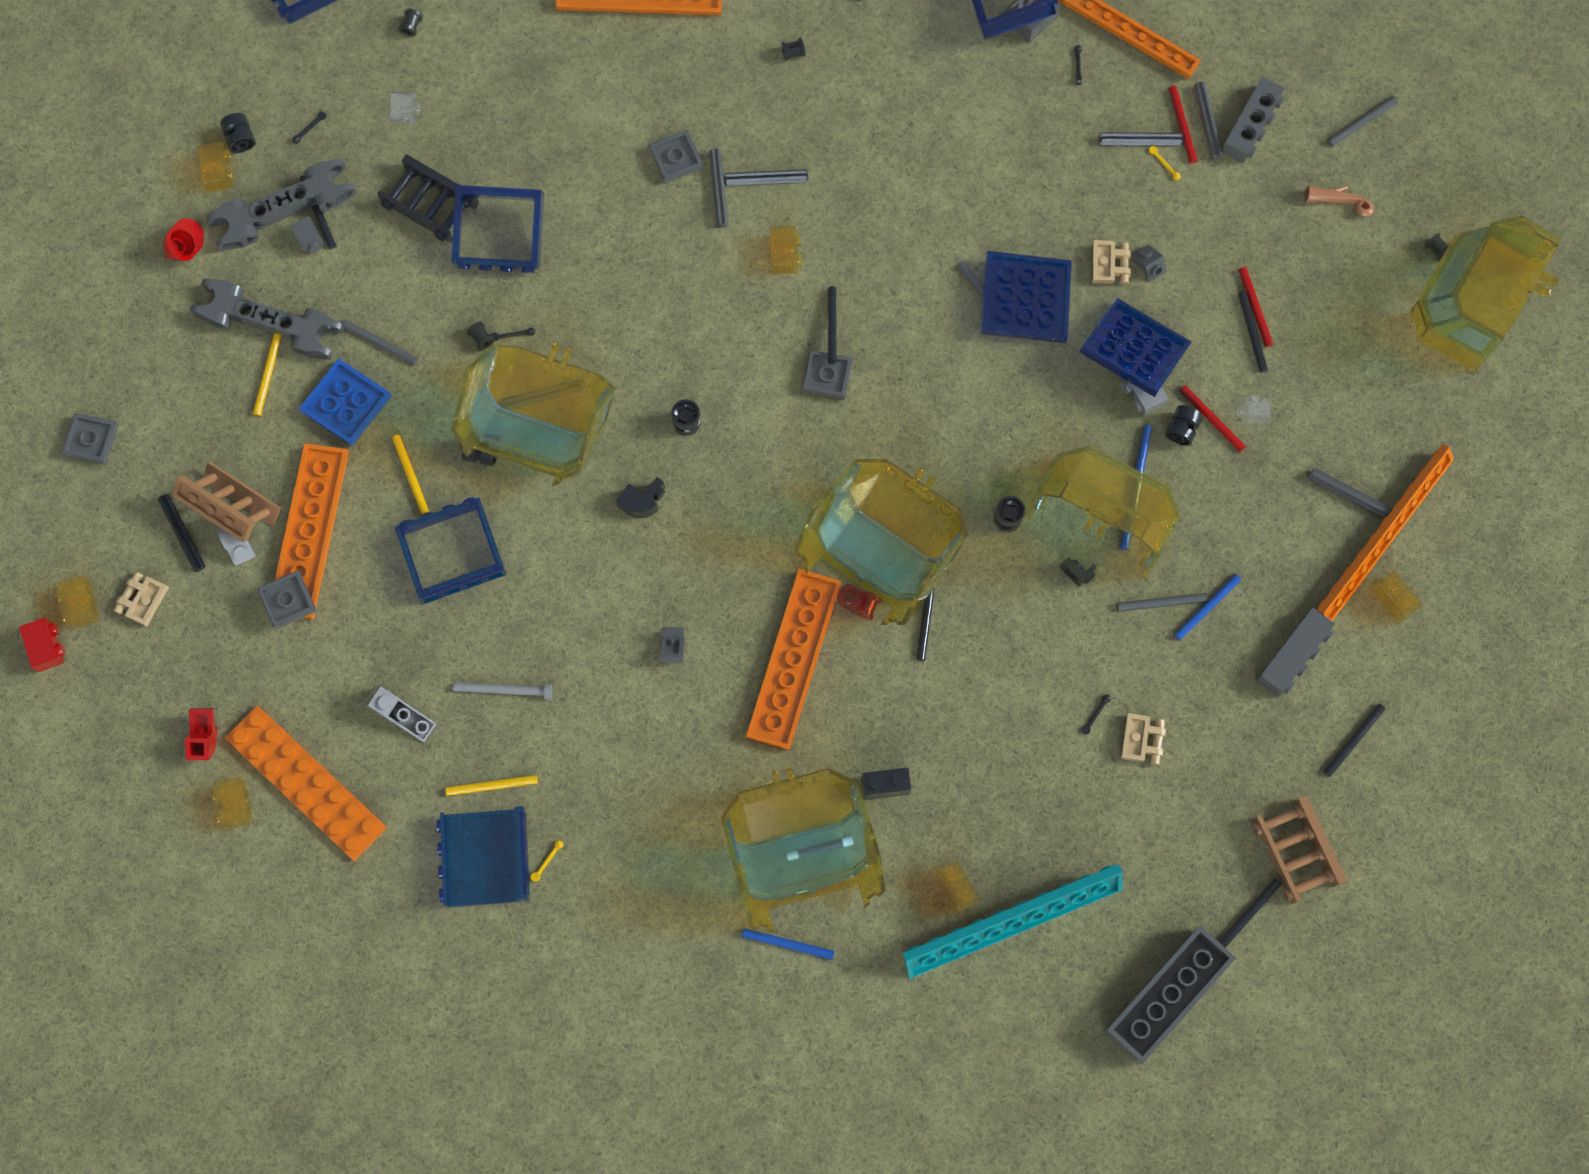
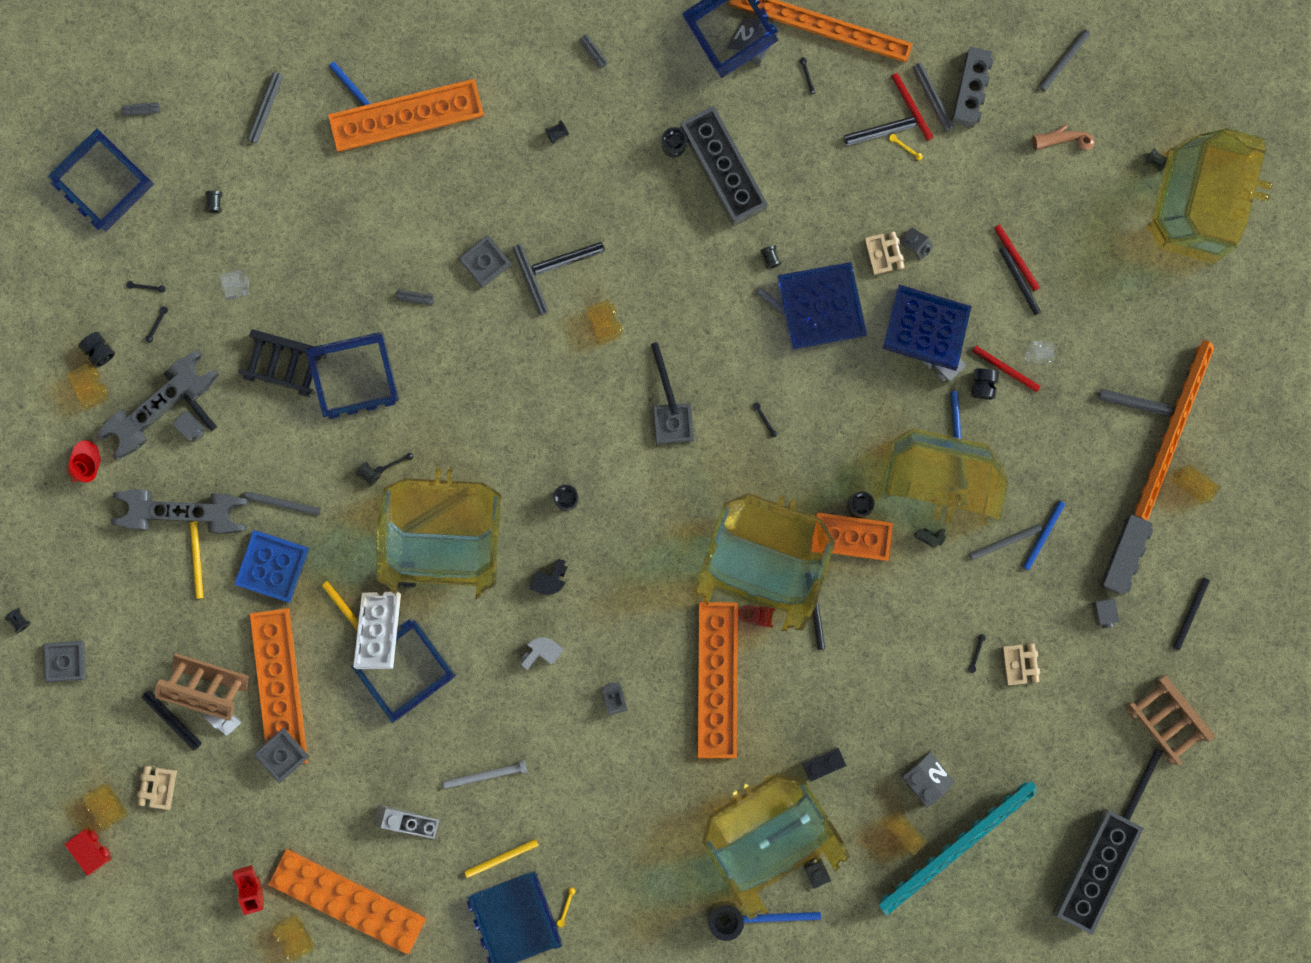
camera: 20 degrees left, 10 degrees up
(53, 388) = (11, 617): none -> black bush
(295, 81) = (130, 285): none -> black hinge
(435, 497) = (378, 630): none -> white piece
(589, 172) = (415, 297): none -> dark grey axle
(608, 567) = (541, 647): none -> light grey brick
(717, 913) = (732, 928): none -> black piece
(843, 904) = (817, 872): none -> pearl dark grey bracket
(914, 89) = (674, 142): none -> black wheel
(924, 383) = (773, 433): none -> black hinge
(960, 127) = (723, 166): none -> dark grey brick
(985, 233) = (770, 257): none -> pearl dark grey bush
(997, 549) = (859, 536): none -> orange plate
(999, 836) = (927, 779): none -> dark grey slope
(1255, 709) = (1105, 613): none -> dark grey brick

